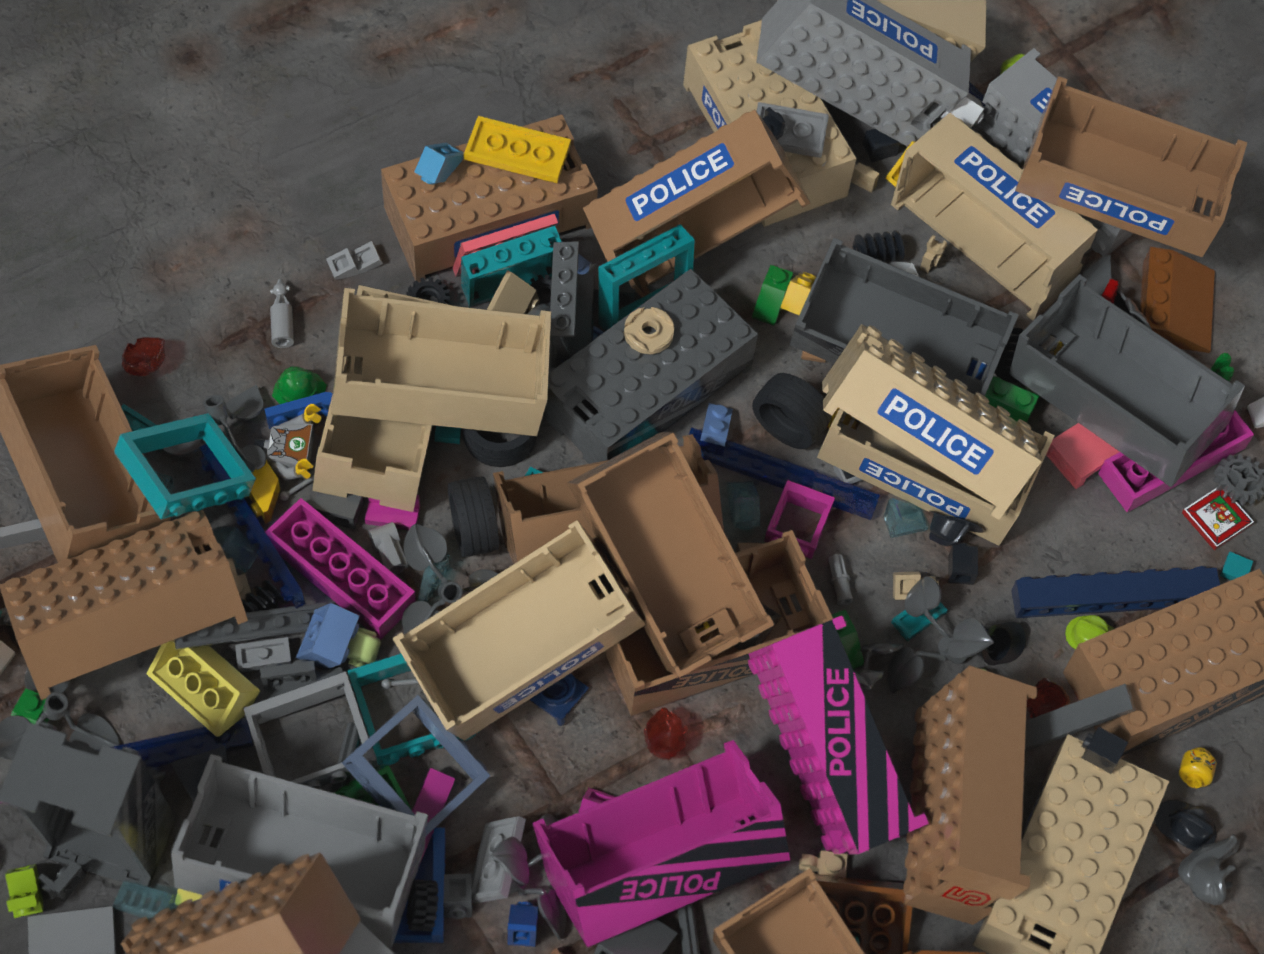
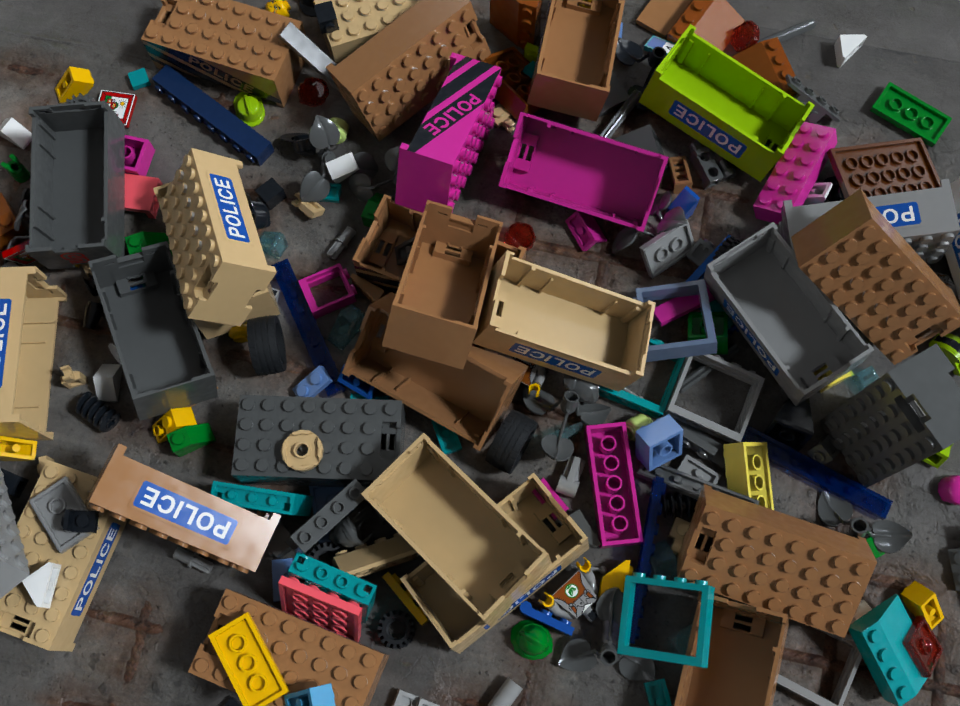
camera: 130 degrees left, 10 degrees up
(741, 70) = (42, 584): none -> white slope
(920, 637) = (342, 167): none -> white slope

